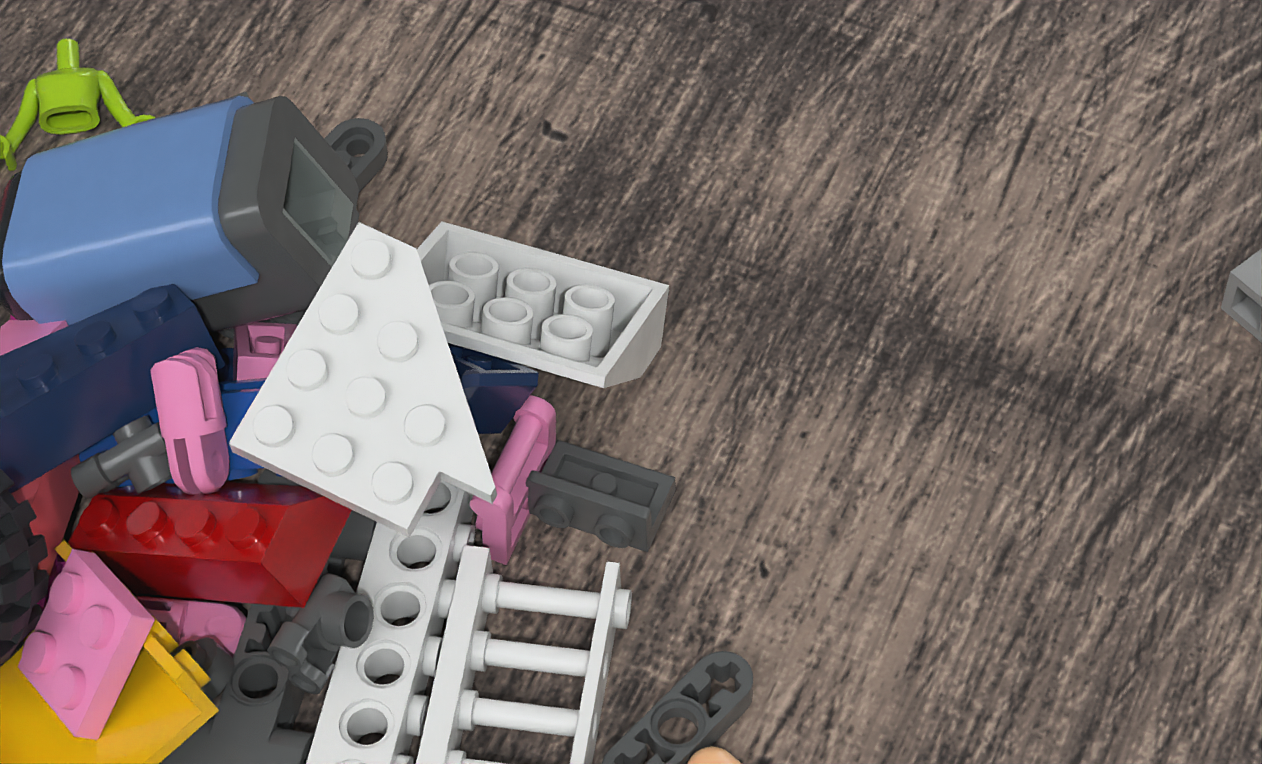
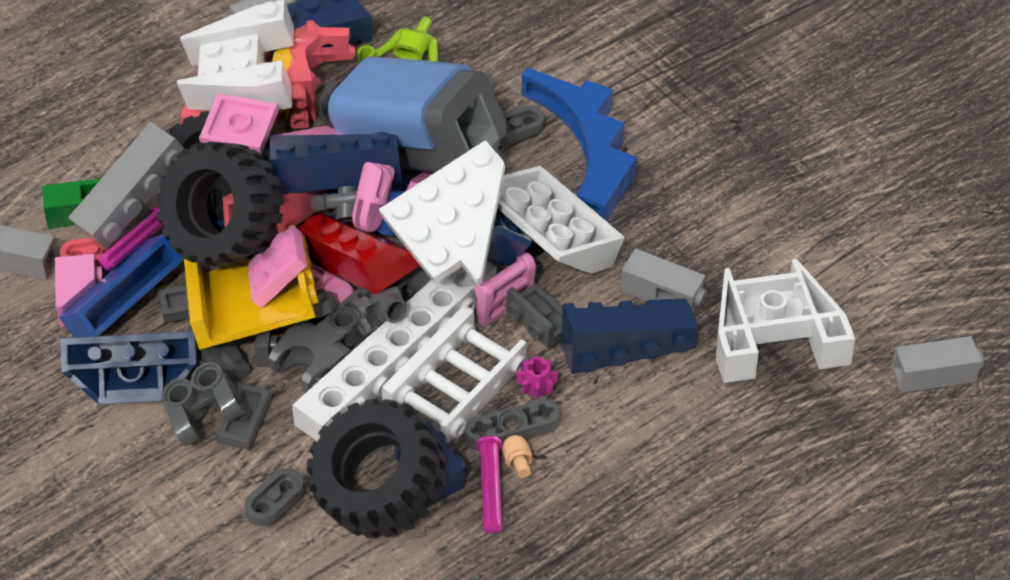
camera: 25 degrees right, 5 degrees down
(493, 121) = (586, 115): none -> blue arch
(668, 617) = (537, 377): none -> dark pink gear
(771, 462) = (625, 332): none -> dark blue wedge
(773, 336) = (657, 278): none -> light grey brick
(997, 299) = (775, 311): none -> white wedge

